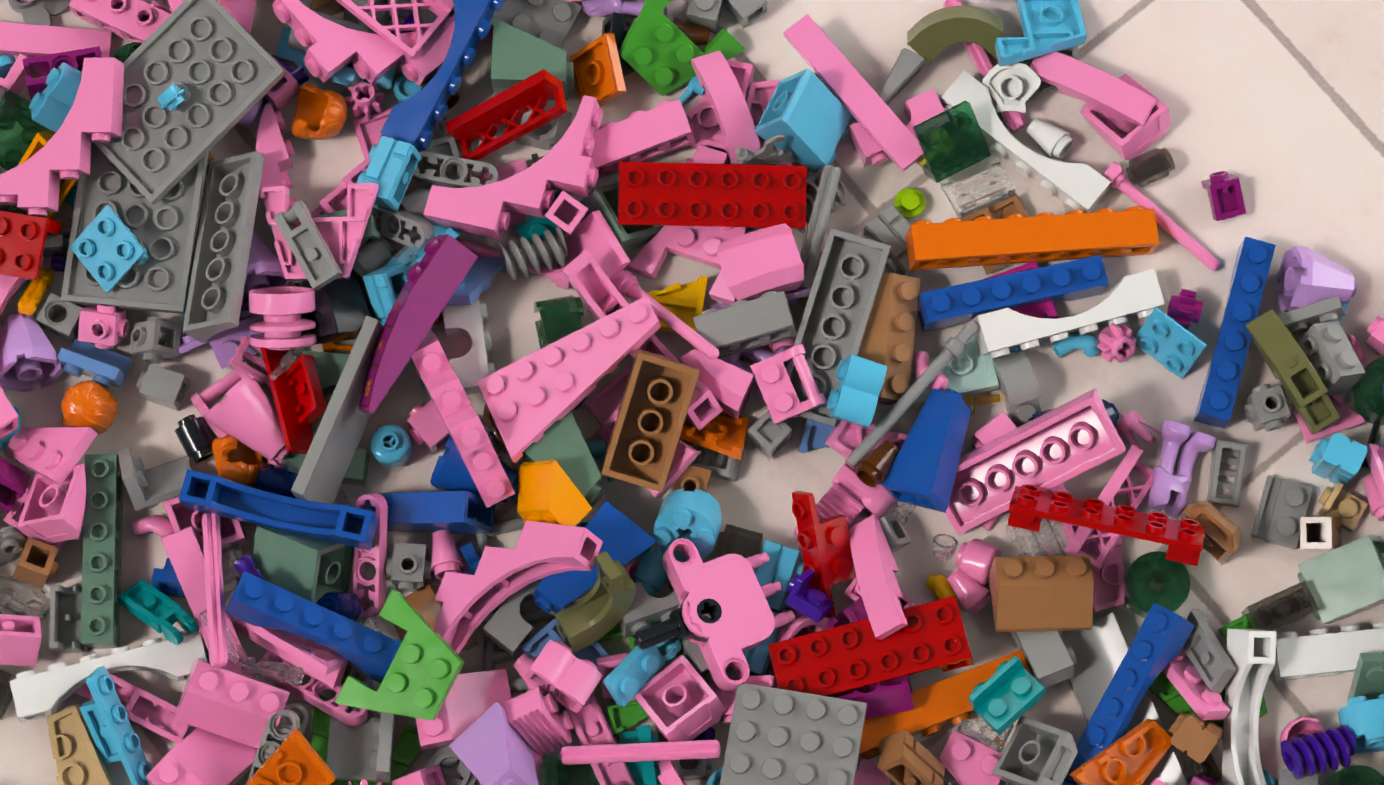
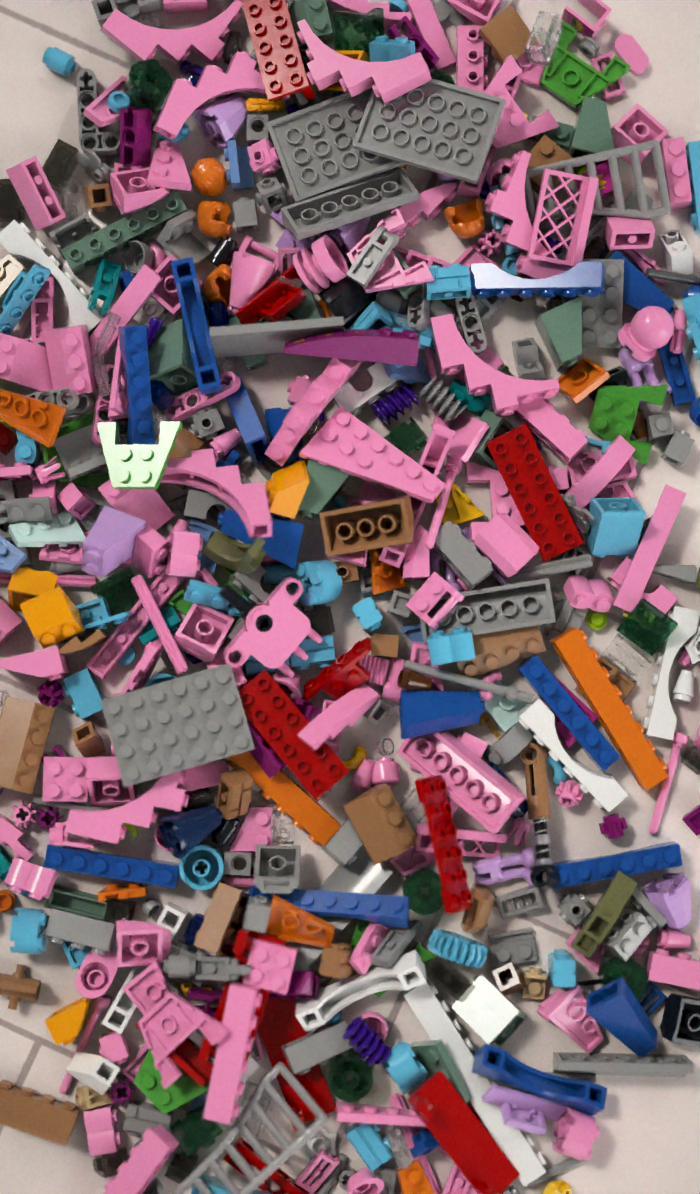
camera: 60 degrees right, 10 degrees up
(108, 249) = (311, 134): medium azure hinge -> none
(143, 550) = (137, 256): none -> light grey hair
(145, 430) = (213, 218): none -> orange hair
(171, 98) = (422, 120): medium azure plate -> none
(214, 590) = (128, 313): bright pink axle -> none
(277, 43) = (496, 169): none -> bright pink hair
(395, 455) = (274, 381): medium azure head -> none
(484, 69) = (548, 303): none -> light grey bush
(507, 317) = (395, 404): none -> dark purple piece
(508, 109) = (527, 335): red fence -> none
(566, 212) = (477, 407): bright pink brick -> none
(762, 481) = (368, 616): none -> medium azure brick
(808, 601) = (305, 679): dark purple bracket -> none
(813, 478) = (384, 645): none -> medium nougat brick
(873, 194) = (588, 593): none -> bright pink brick
(1006, 695) = (305, 831): teal bracket -> none
(1125, 389) = (539, 812): none -> piece
(1169, 343) = (584, 827): medium azure hinge -> none
(1250, 577) = (458, 948): none -> medium azure gear
(1363, 306) = (671, 938): none -> bright pink cone

